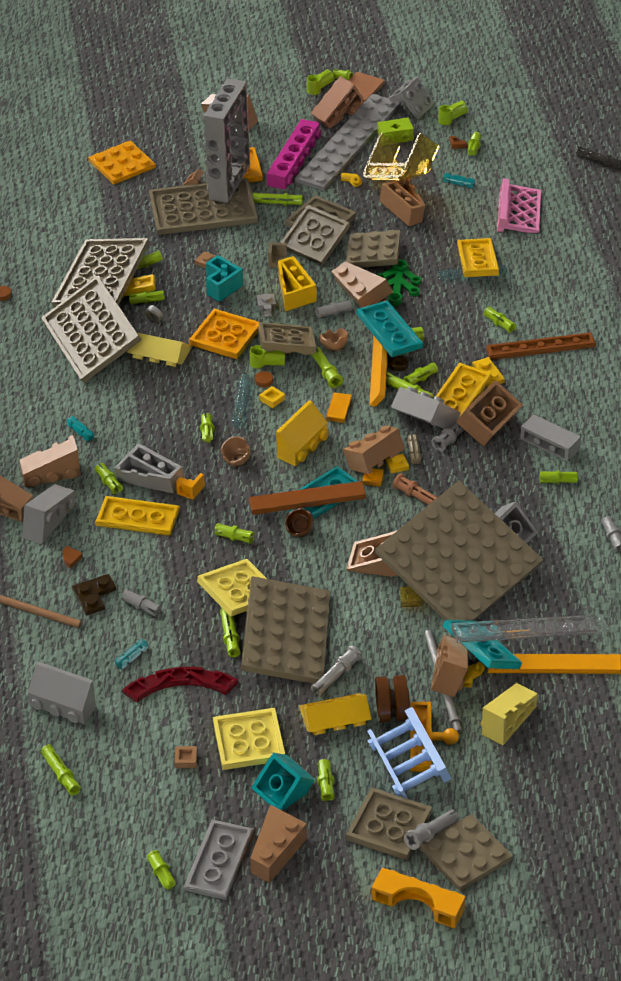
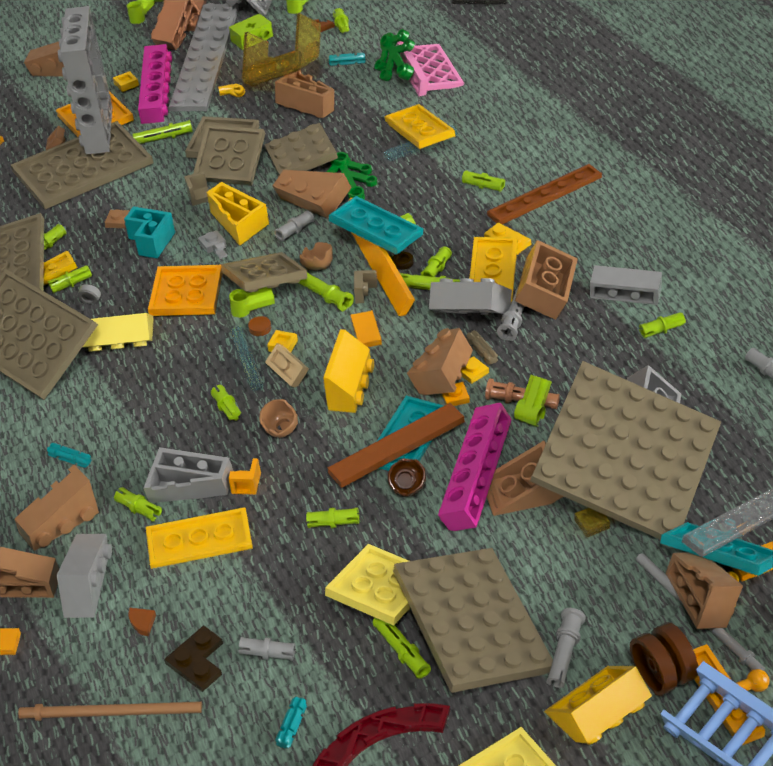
camera: 20 degrees left, 0 degrees up
(264, 415) = (286, 365): none -> tan plate
(273, 145) = (126, 81): none -> yellow plate
(351, 531) = (475, 467): none -> dark pink brick
(355, 370) = (362, 281): none -> dark tan bracket
(422, 499) = (532, 407): none -> lime piece
(490, 190) = (388, 44): none -> green plant

